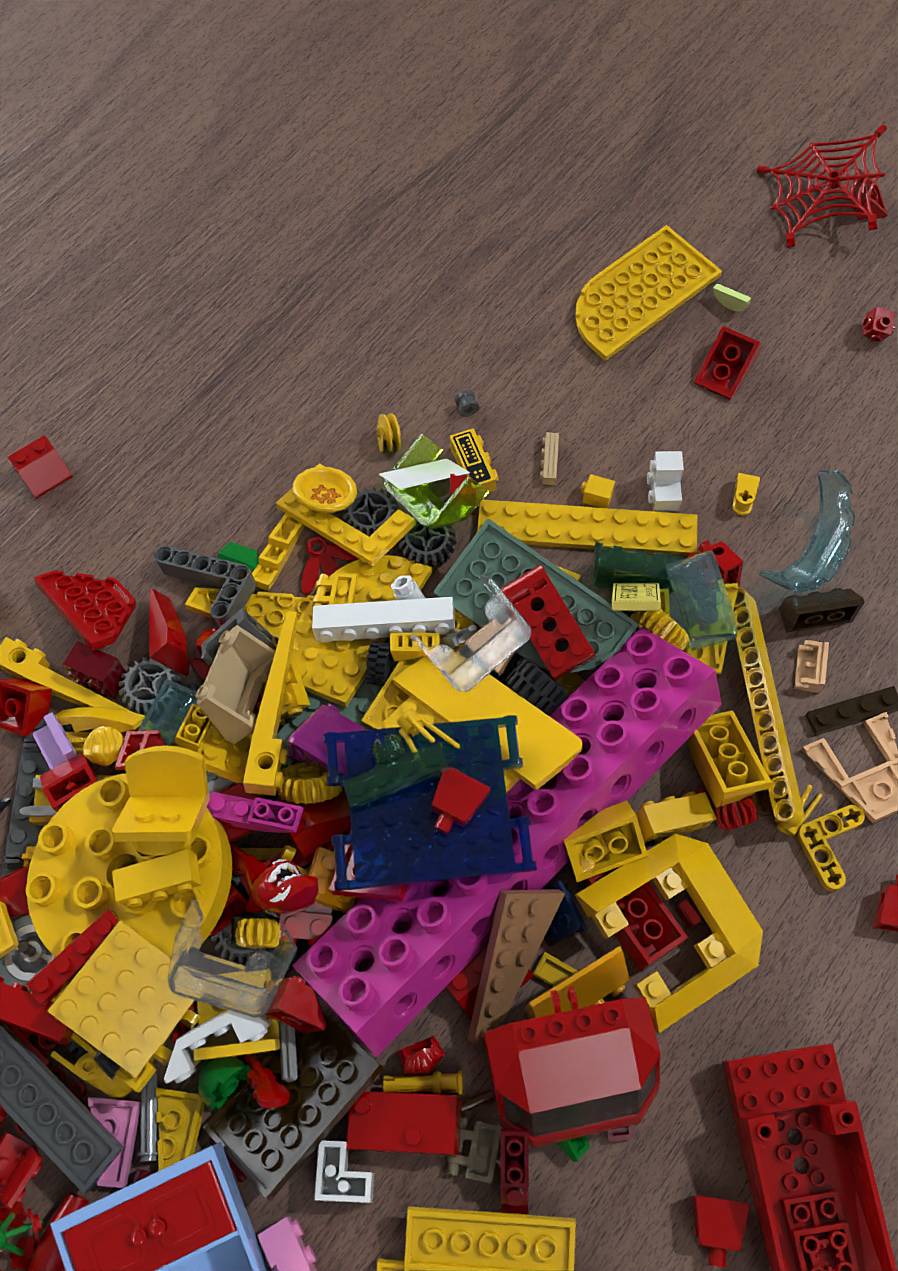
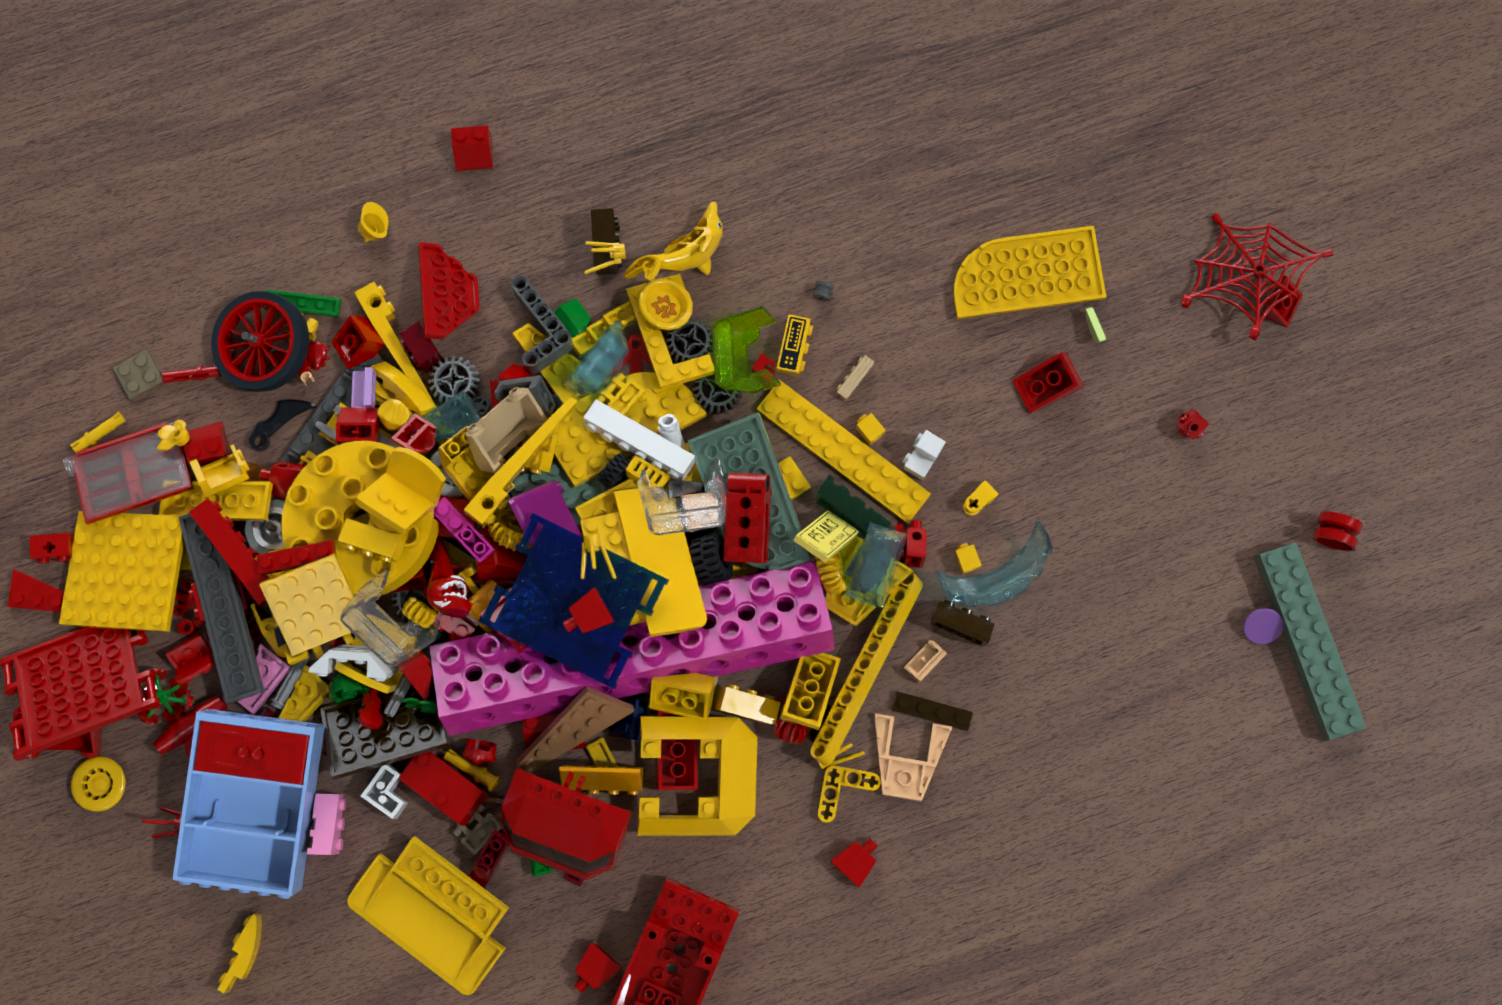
camera: 30 degrees right, 15 degrees up
(166, 634) = (485, 350): red wedge -> none
(228, 471) = (605, 229): none -> dark brown brick
(245, 463) = (616, 251): none -> yellow plant
(293, 574) = (600, 362): none -> clear light blue windscreen
(315, 438) = (686, 251): none -> yellow animal
(329, 1038) = (426, 706): none -> green plate
(388, 430) = (745, 281): yellow piece -> none
(394, 770) = (560, 569): clear green plate -> none
(423, 473) = (745, 337): white sticker -> none
(688, 914) = (712, 774): red tile -> none
(776, 550) = (967, 558): none -> yellow brick

